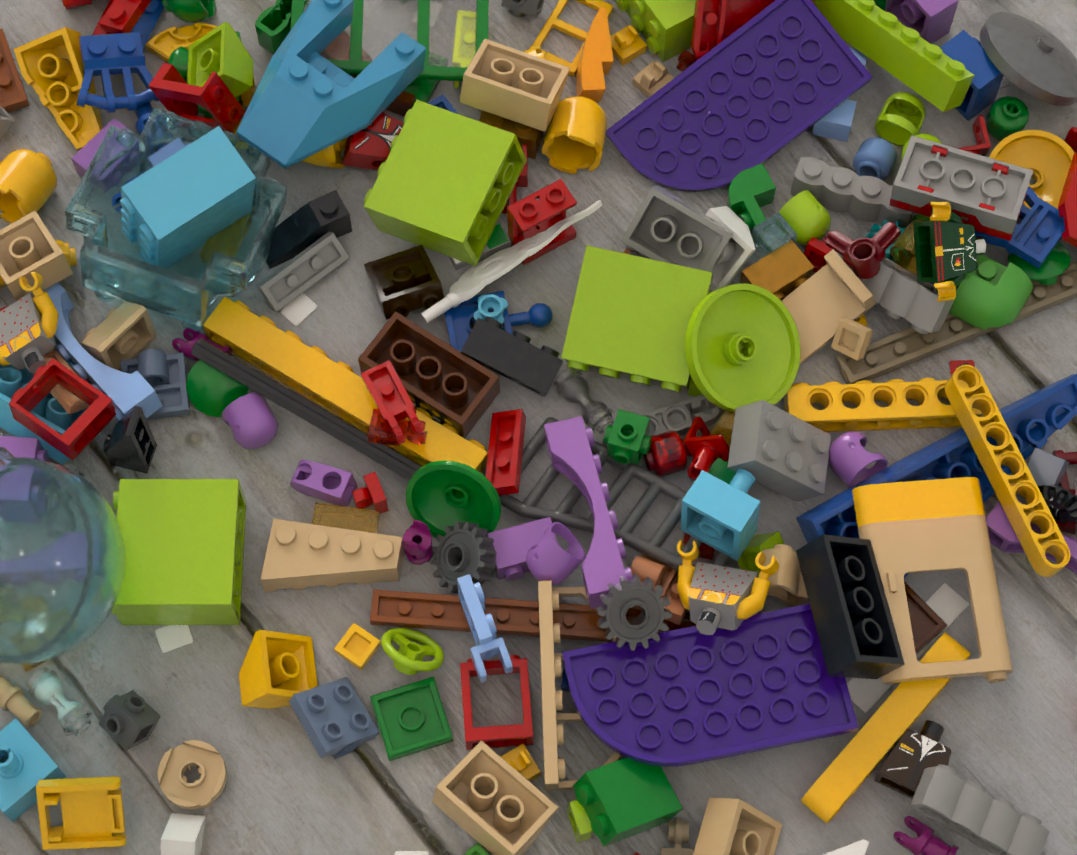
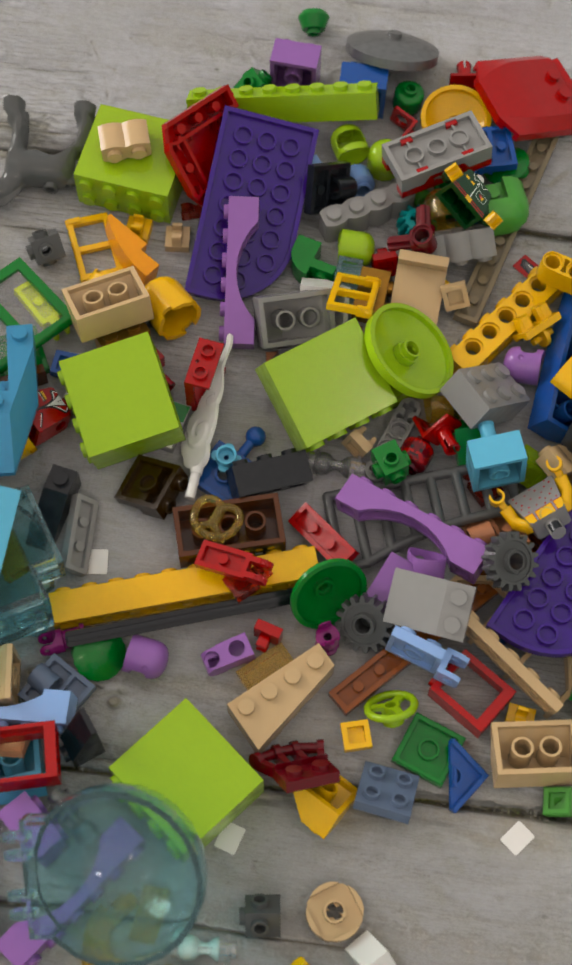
camera: 45 degrees left, 0 degrees up
(274, 631) = (300, 773): none -> dark red plate
(417, 768) = (464, 775): none -> blue tile
(420, 351) = (221, 508): none -> clear yellow piece
(522, 588) = (429, 604): none -> light grey slope
(622, 396) = (357, 443): none -> tan tile
(709, 109) = (242, 224): none -> medium lavender arch
(725, 271) = (359, 310): none -> yellow window
(833, 138) = (328, 185): none -> black plate
(888, 427) = (527, 329): none -> yellow hips

